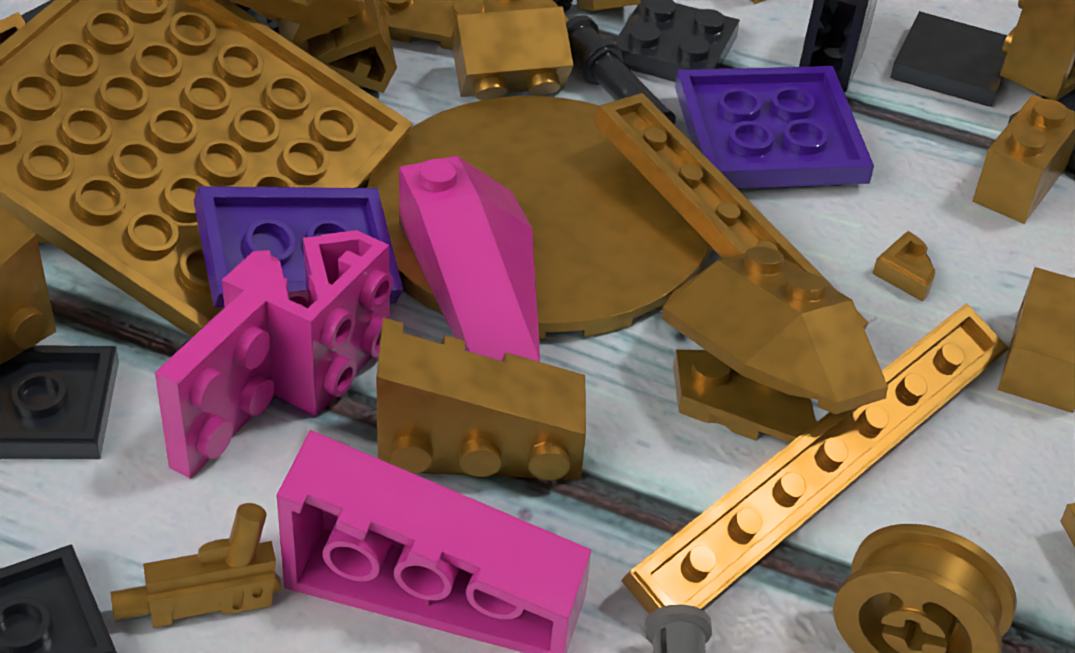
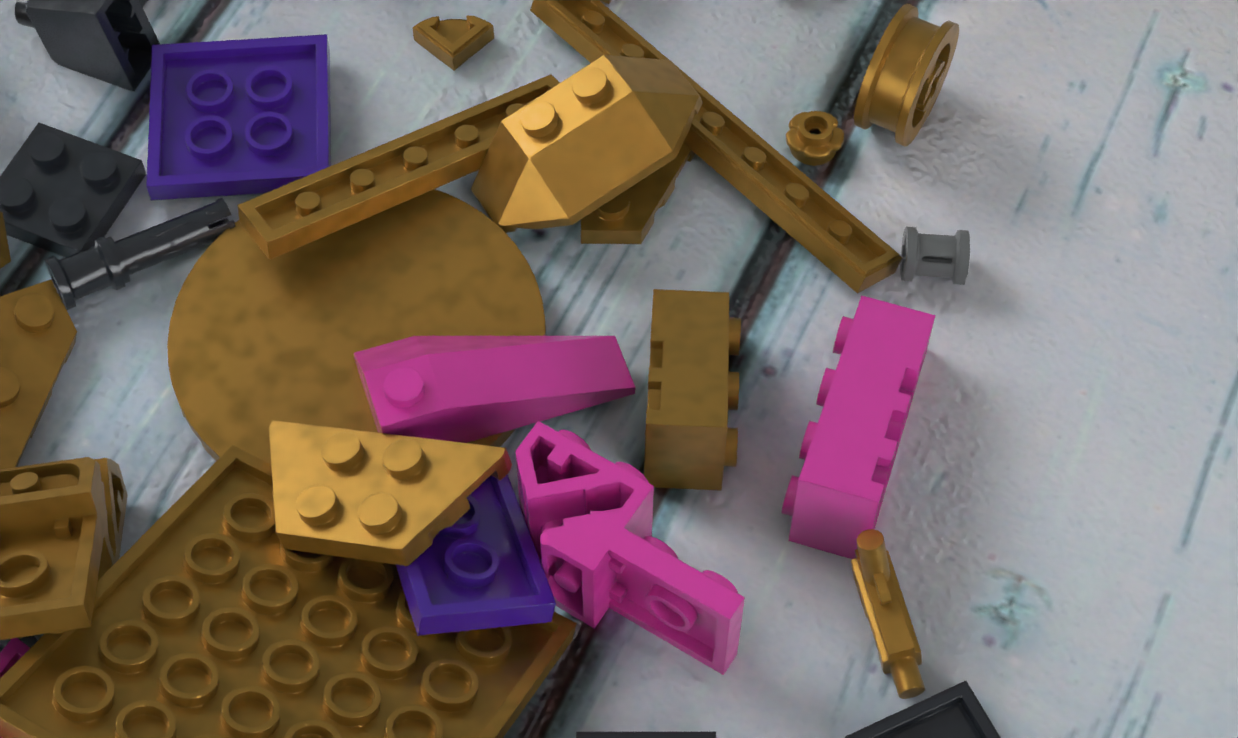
camera: 85 degrees left, 15 degrees up
(340, 170) = (372, 490): none -> pearl gold wing
(511, 52) = (105, 343): pearl gold brick -> none
(834, 551) = (813, 148): none -> pearl gold plate

